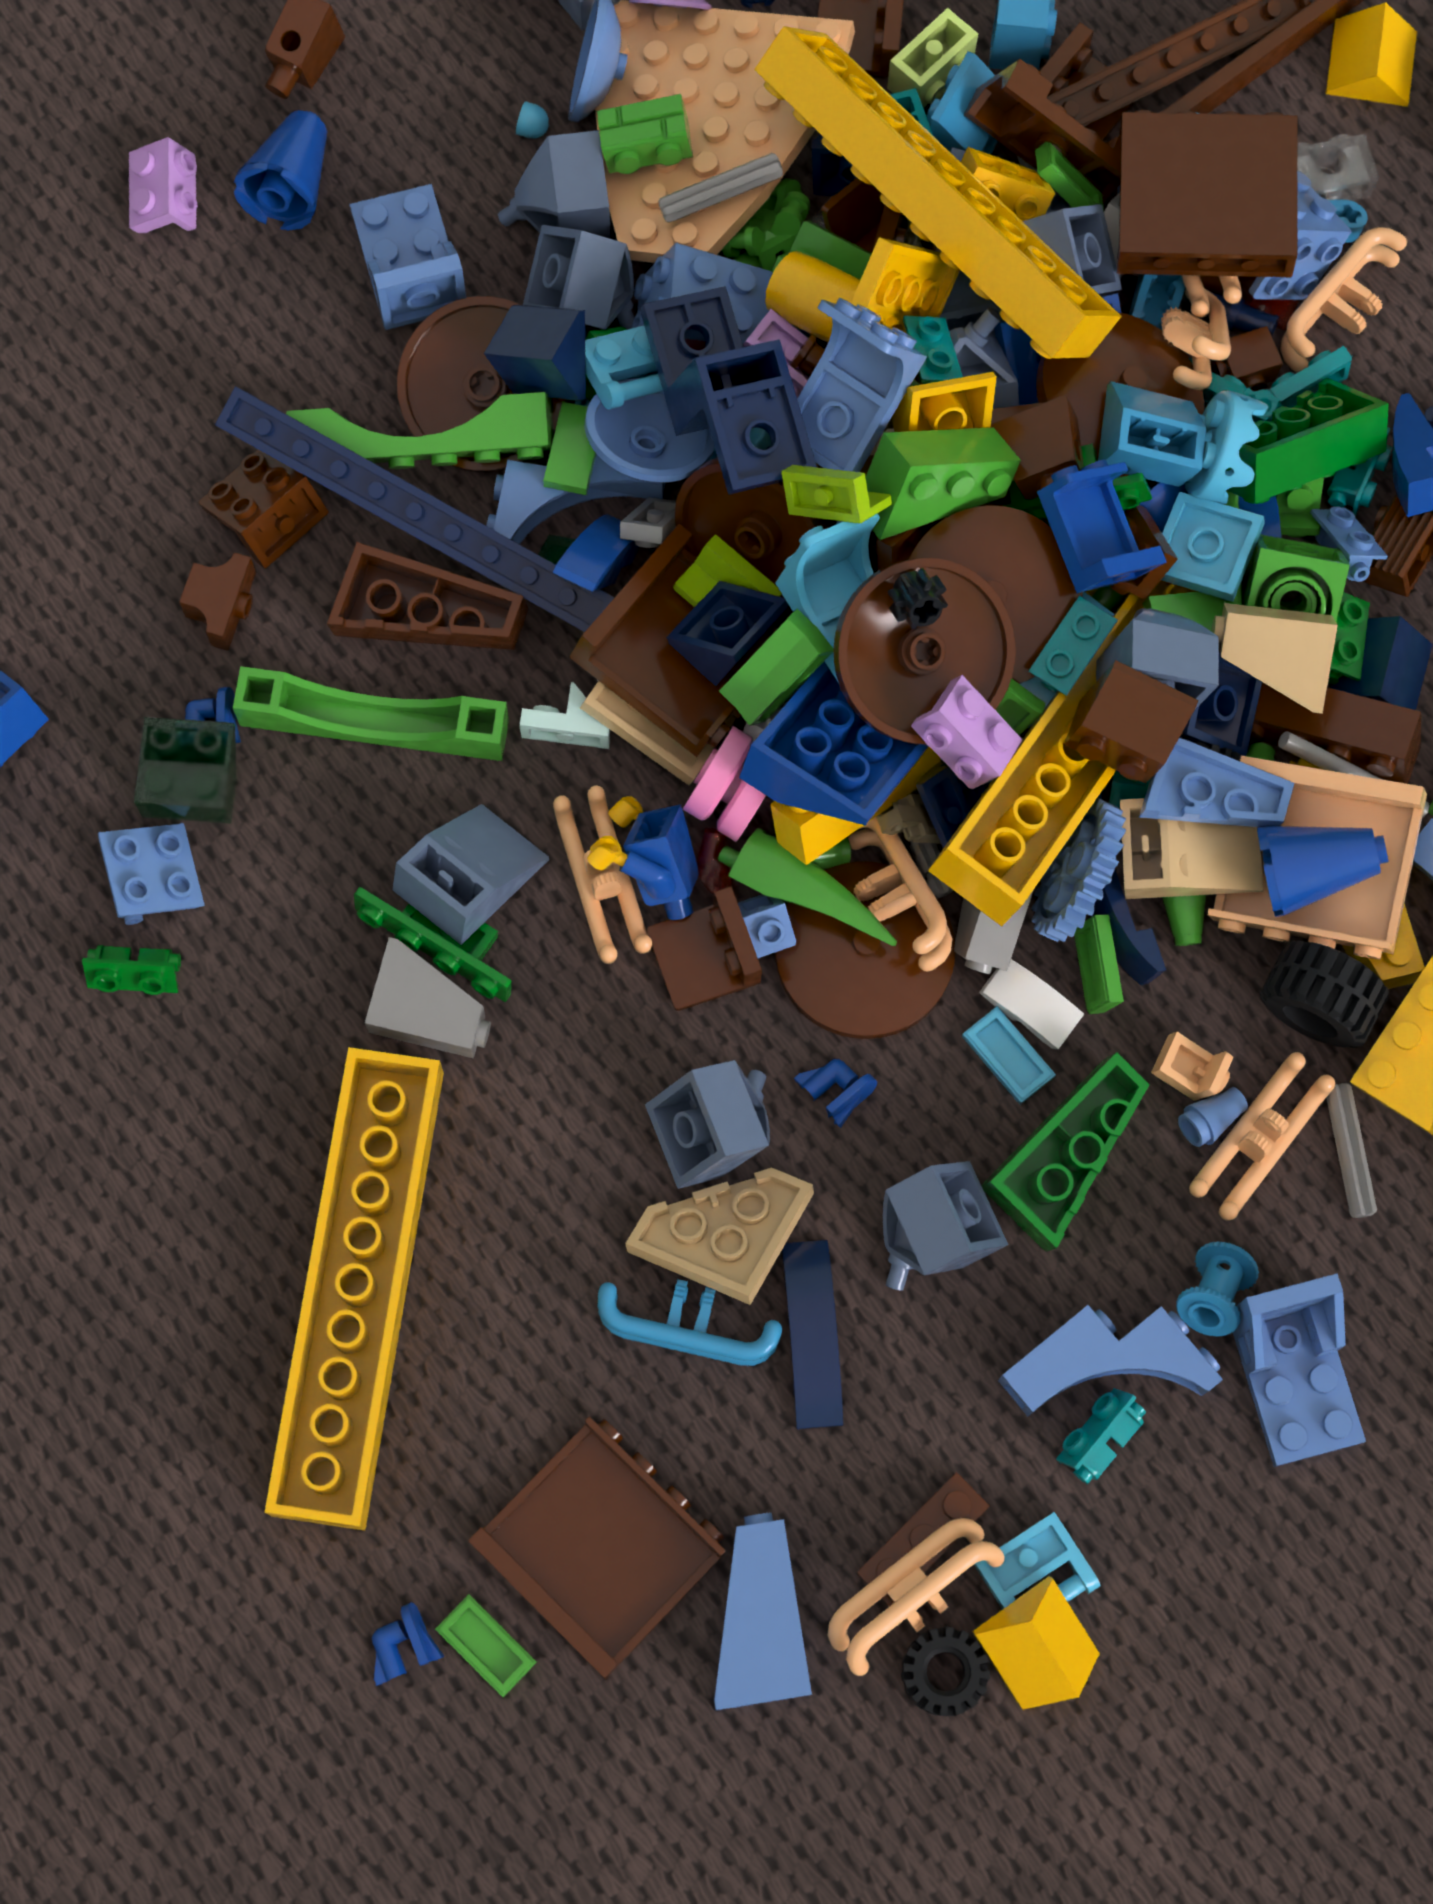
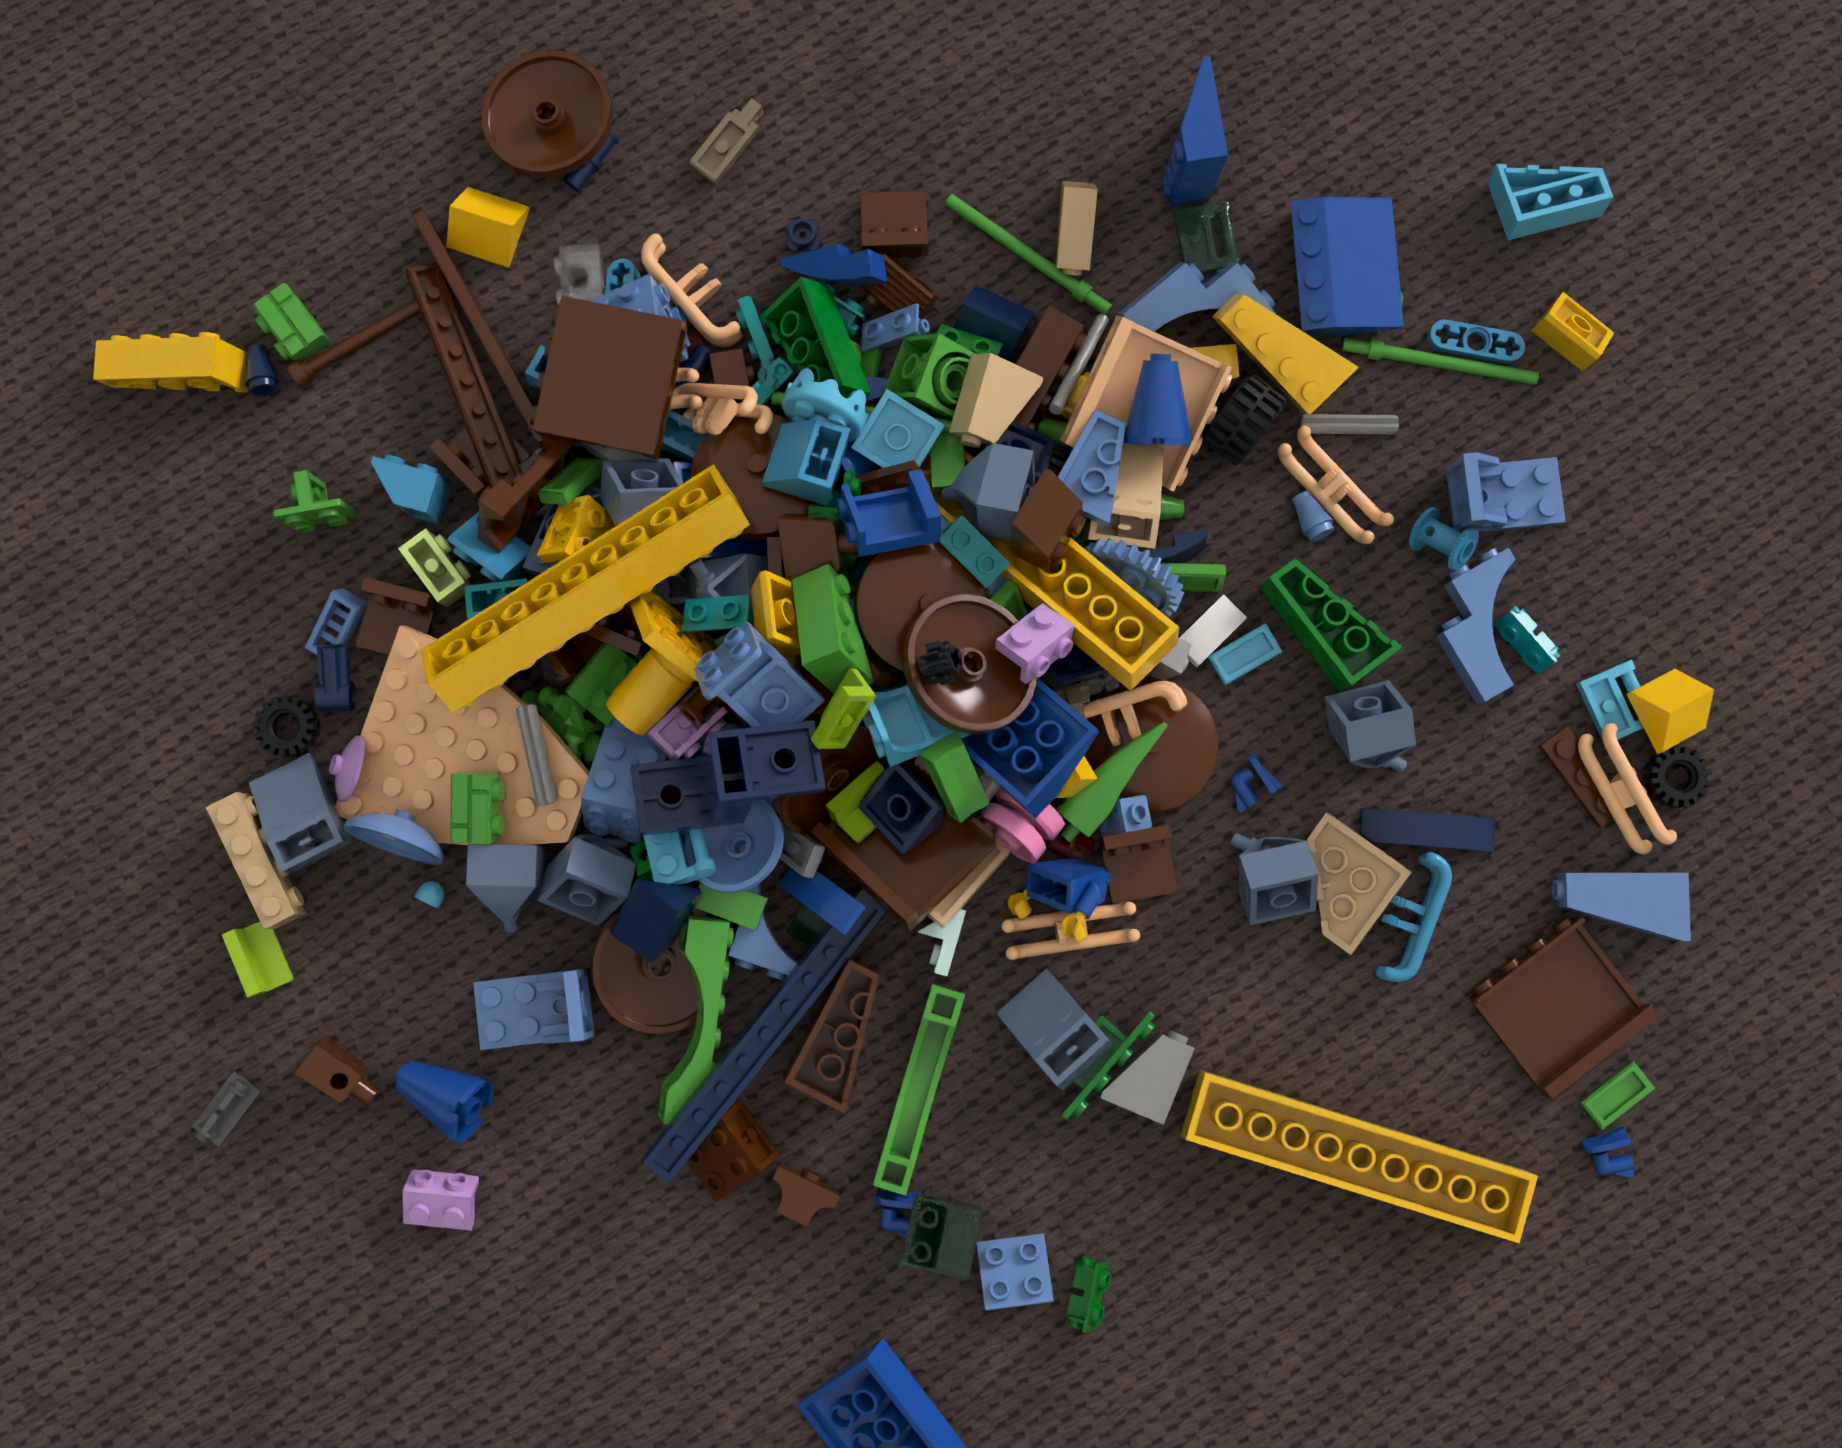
camera: 80 degrees left, 10 degrees up
(1192, 1068) = (1276, 524): light nougat bracket -> none

